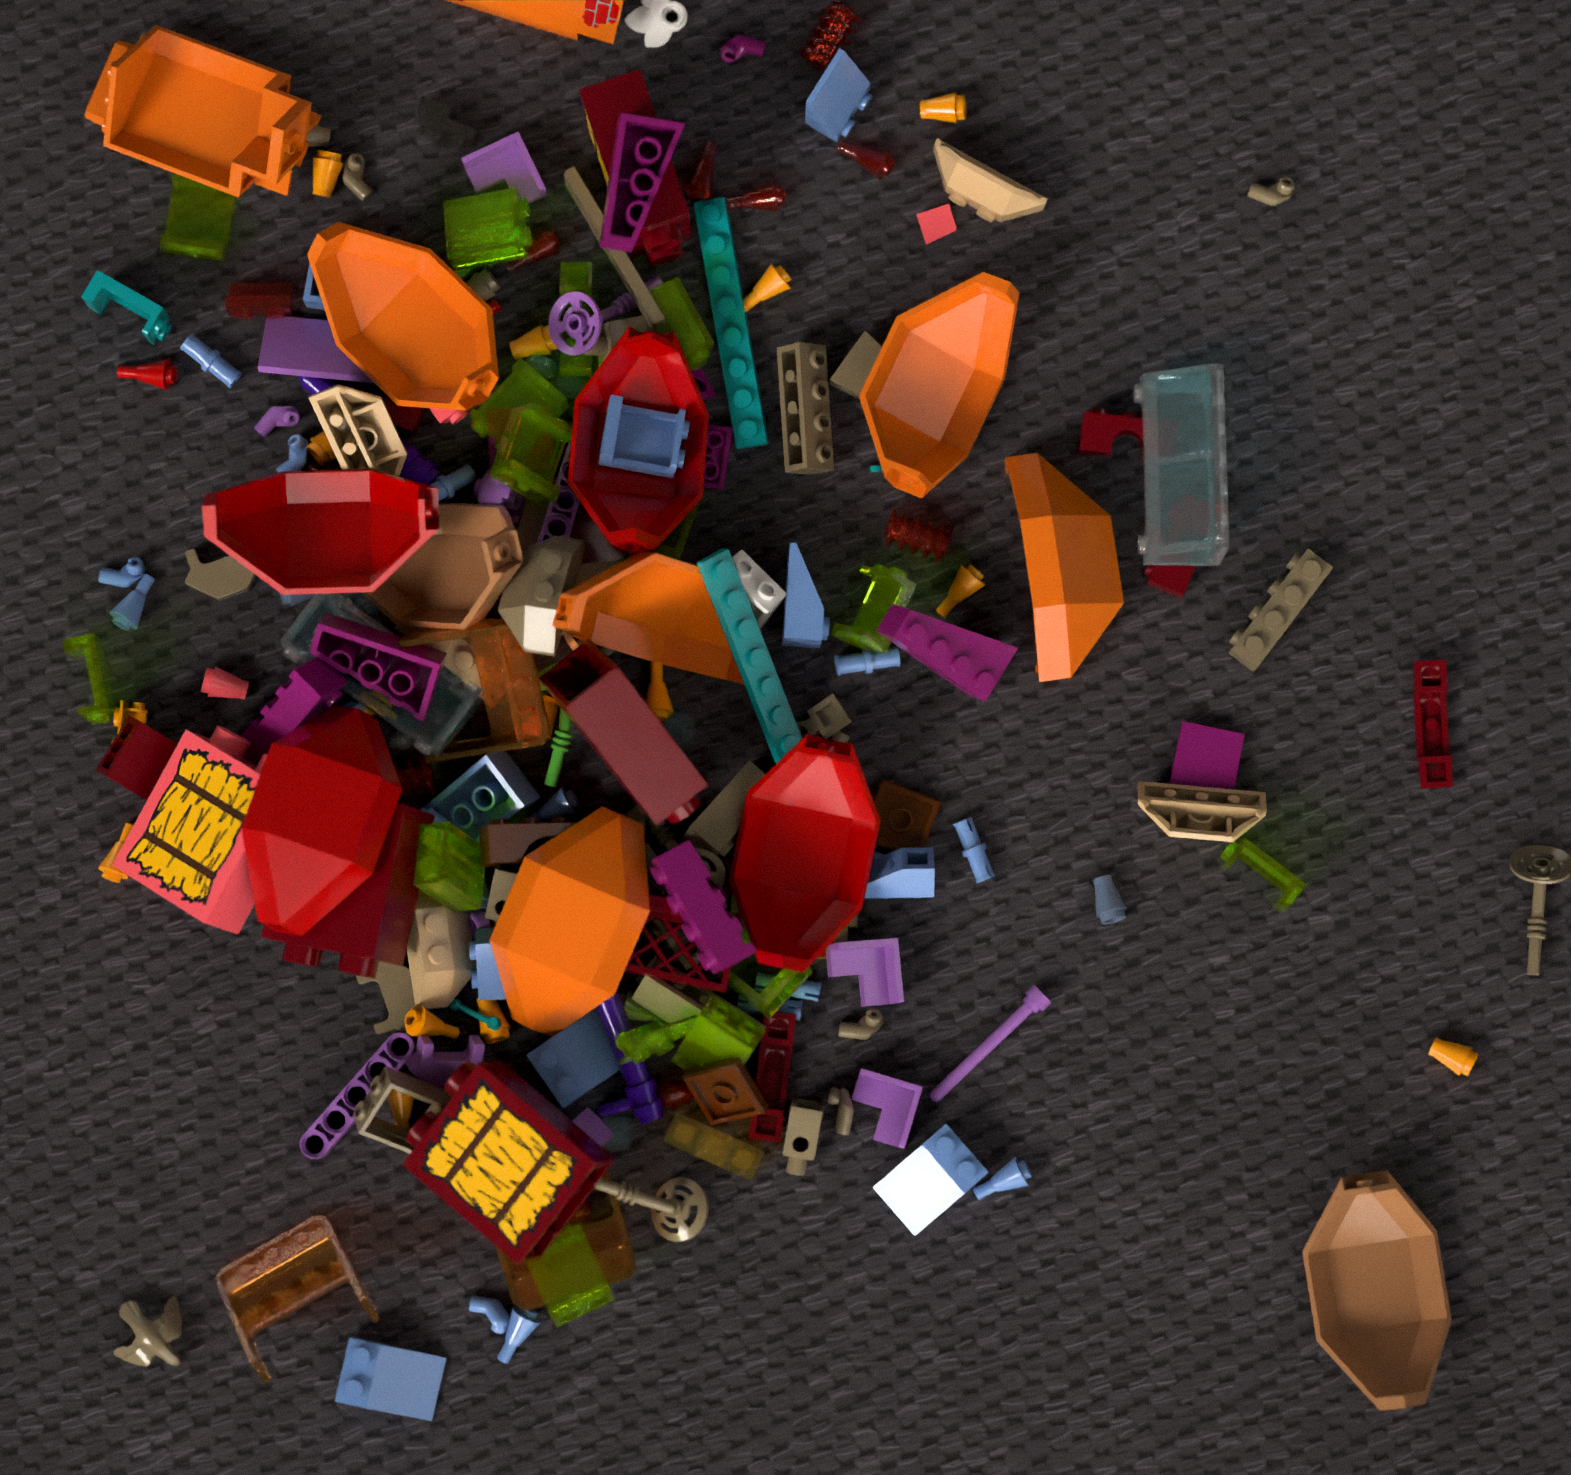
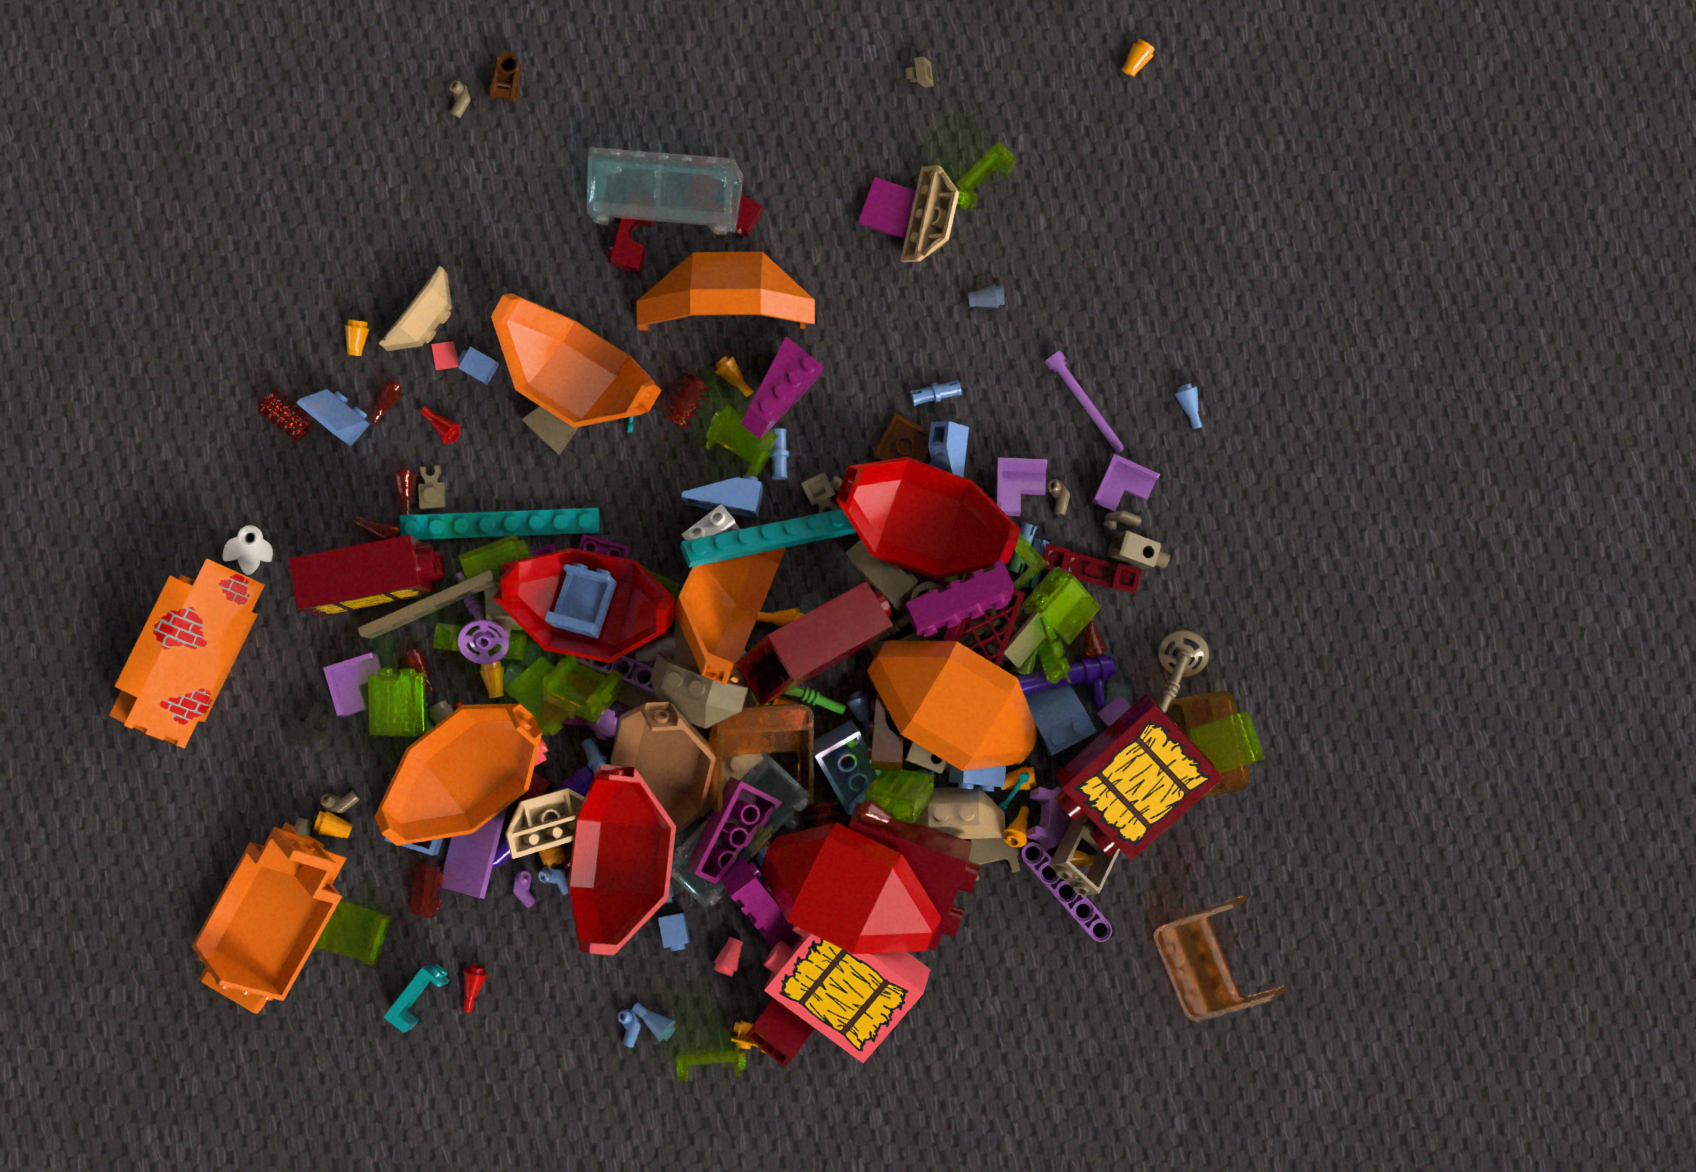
camera: 80 degrees left, 0 degrees up
(110, 872) = (858, 1066): light orange cone -> none
(151, 1337) = (1234, 1077): dark tan animal -> none
(210, 360) = (469, 936): medium blue pin -> none
(218, 578) = (644, 951): dark tan piece -> none
(247, 612) = (674, 931): none -> medium blue brick
(390, 1379) = (1287, 894): medium blue slope -> none
(419, 834) = (873, 813): none -> clear red cone
(477, 920) = (942, 780): medium lavender tile -> none
(494, 1310) = (1244, 806): medium blue arm -> none
(520, 1326) = (1261, 790): medium blue cone -> none
(636, 170) = (371, 570): magenta wedge -> none
(713, 1146) = (1139, 620): clear yellow arch -> none
(724, 1091) = (1099, 605): reddish brown tile -> none
(739, 46) = (281, 487): magenta arm -> none
(759, 233) = (431, 493): none -> dark tan plate
(770, 284) = (473, 487): light orange cone -> none
(805, 408) = (576, 474): dark tan brick -> none
(841, 238) = (446, 429): none -> red cone
(928, 265) = (477, 365): none -> medium blue brick
(930, 1179) = (1183, 459): slope -> none
(1280, 610) = (783, 136): dark tan brick -> none
(1303, 247) = (506, 83): none -> reddish brown piece
(1378, 1290) = (1311, 135): medium nougat panel -> none
(1392, 777) = (921, 72): none -> dark tan tile
(1431, 724) = (885, 39): dark red slope -> none

